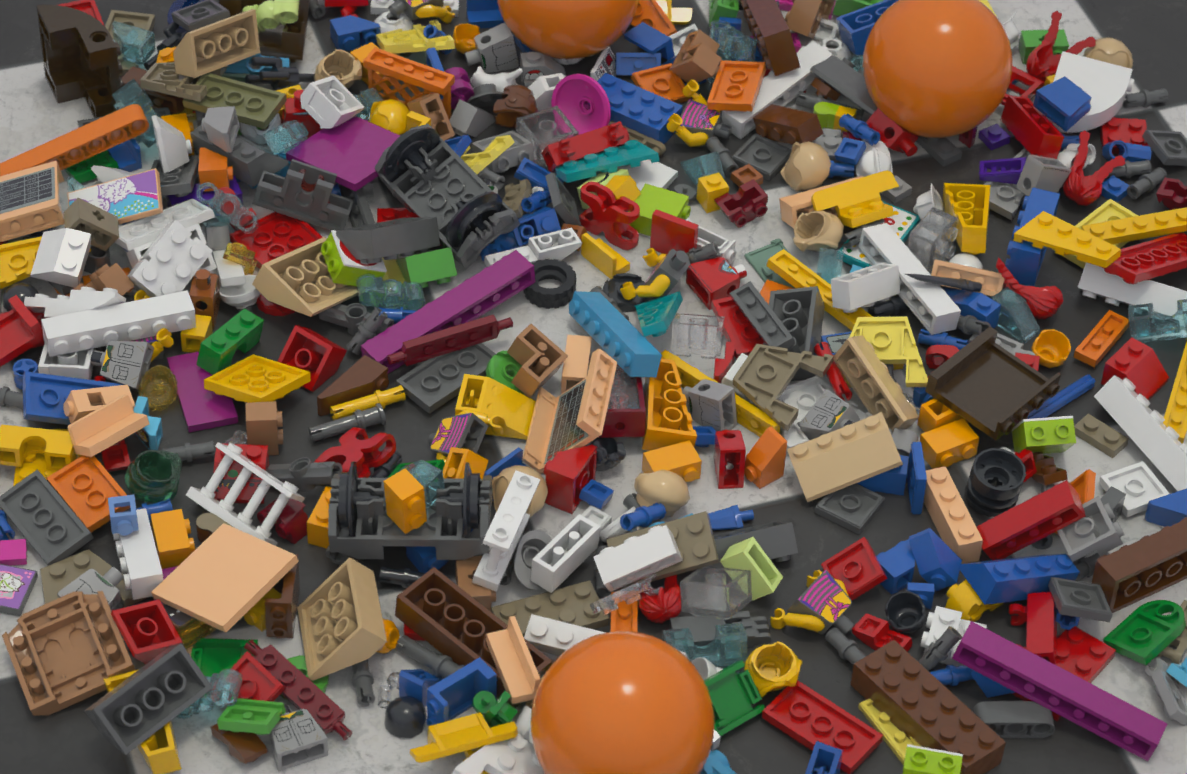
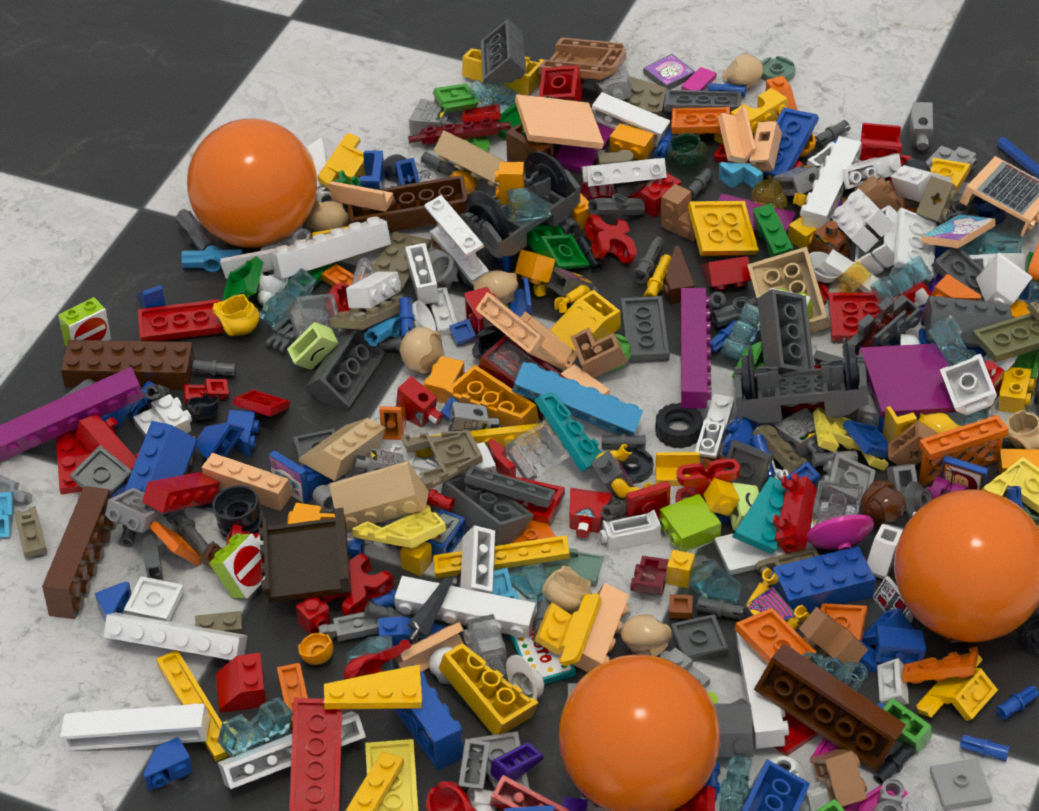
camera: 135 degrees right, 0 degrees up
(125, 521) = (655, 109): medium blue brick -> none
(221, 127) = (976, 295): light grey slope -> none
(449, 340) = (663, 331): dark red plate -> none
(729, 518) = (377, 384): blue bar -> none
(787, 125) = (702, 651): reddish brown brick -> none
(818, 606) = (256, 370): torso -> none
(924, 590) = (209, 419): blue plate -> none
(1063, 397) = (272, 631): blue axle -> none
(1147, 631) = (48, 506): green tile -> none

